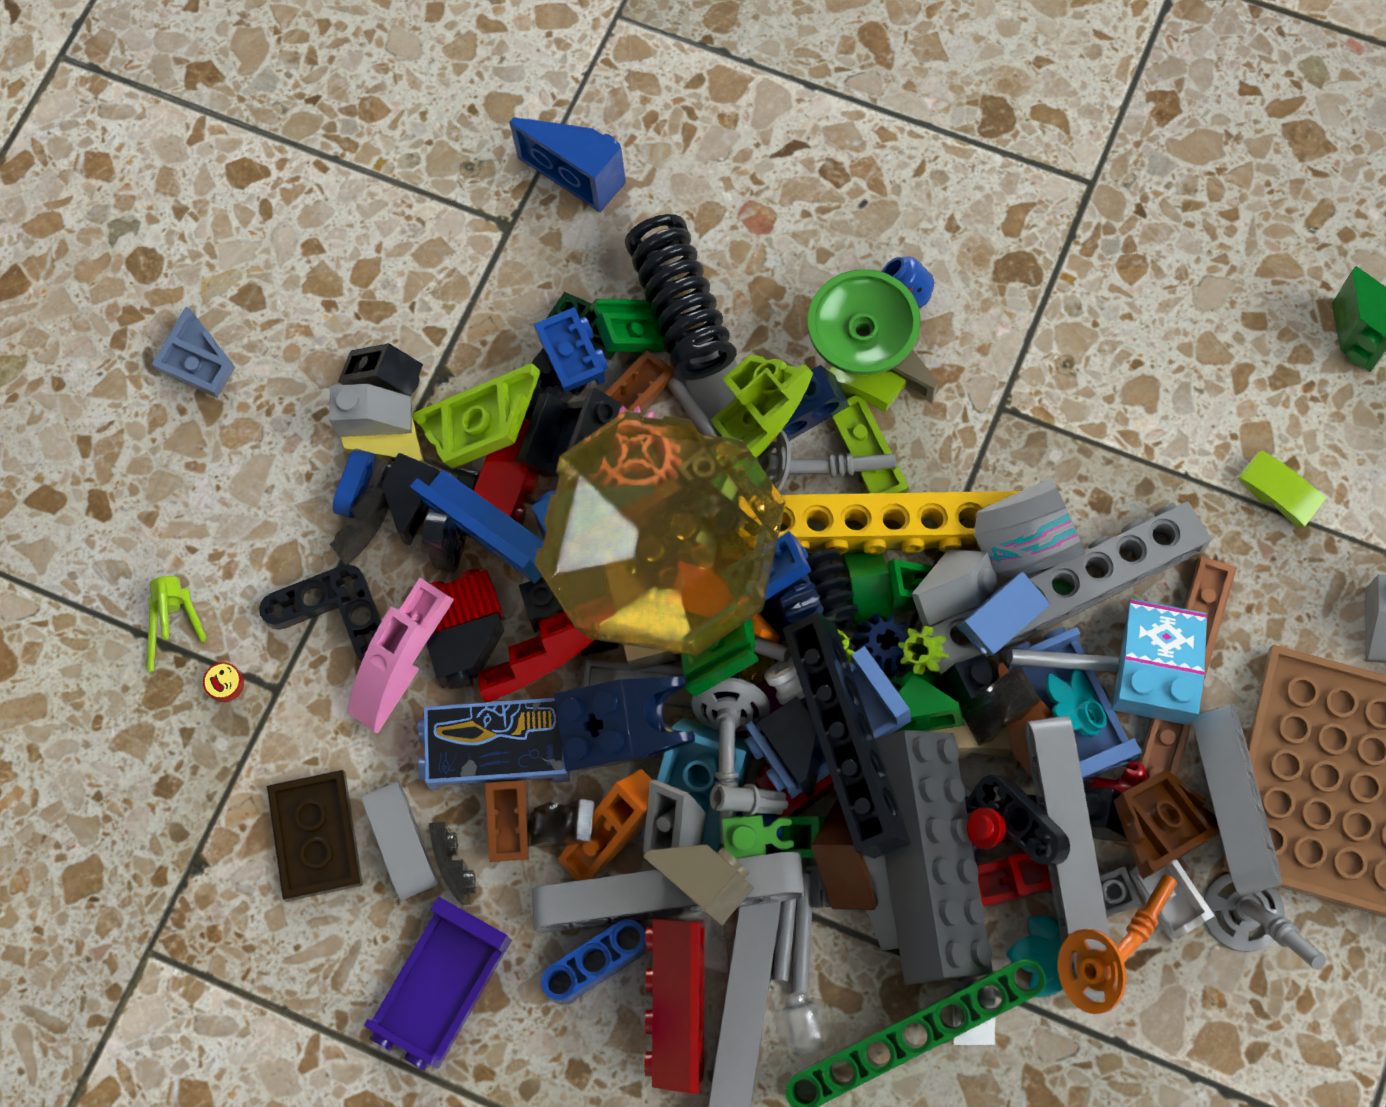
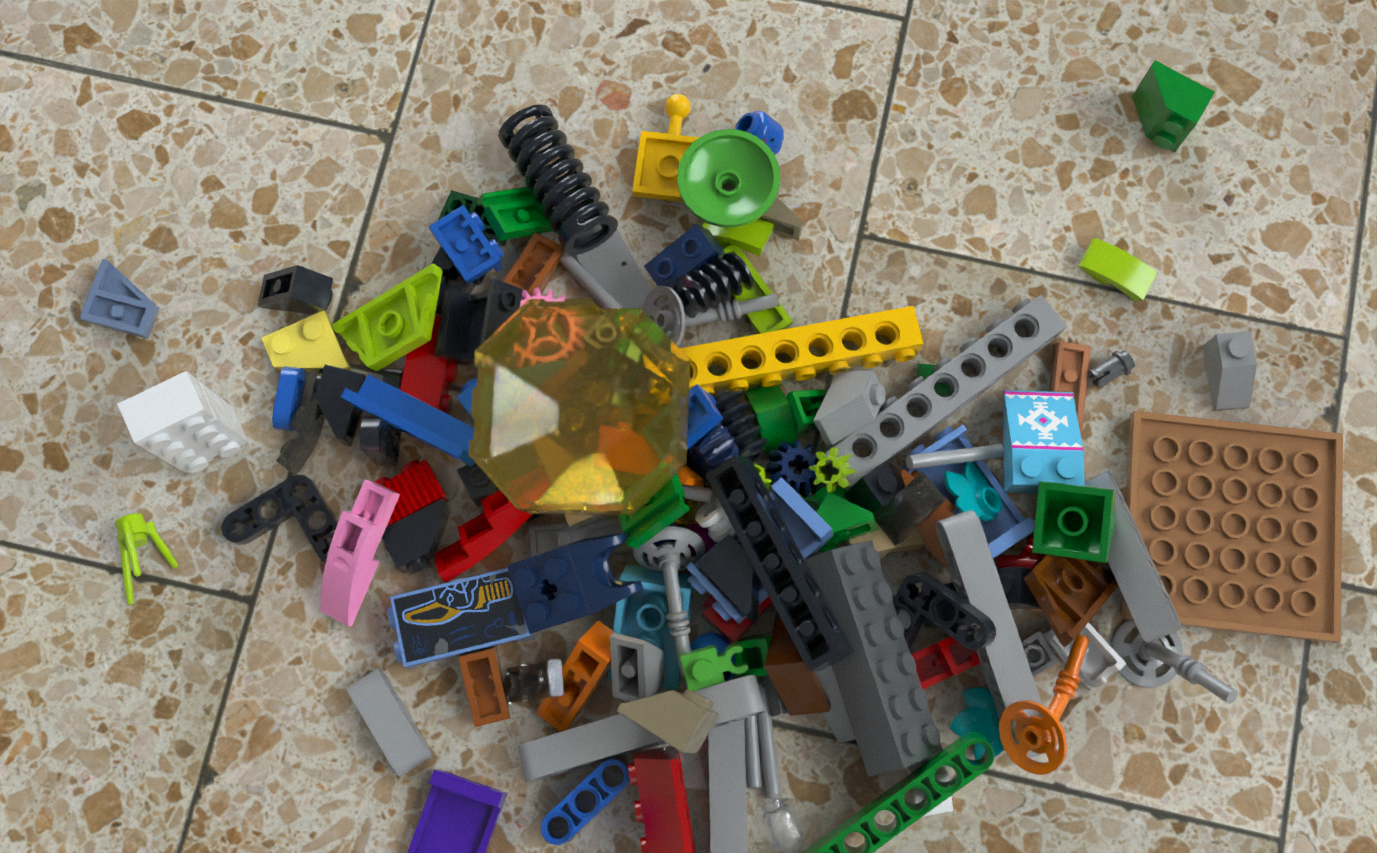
camera: 15 degrees left, 5 degrees up
(223, 682) = (200, 602): tile -> none
(242, 487) = (183, 423): none -> white piece
(314, 835) = (310, 730): dark brown tile -> none
(369, 411) = (290, 330): light grey slope -> none
(454, 872) = (446, 745): clear smoke slope -> none
(572, 157) = (437, 65): blue slope -> none
(747, 800) = (699, 635): light grey axle -> none
(764, 400) = (650, 267): lime slope -> none
(795, 287) = (661, 154): none -> yellow plate
(828, 428) = (713, 281): none -> black piece
(985, 828) = (916, 623): red plate -> none
(1004, 614) = (898, 425): medium blue hinge -> none
(1028, 531) = (907, 345): light grey slope -> none
(1181, 748) = (1074, 521): none -> green slope
(1257, 595) = (1117, 365): none -> dark grey pin

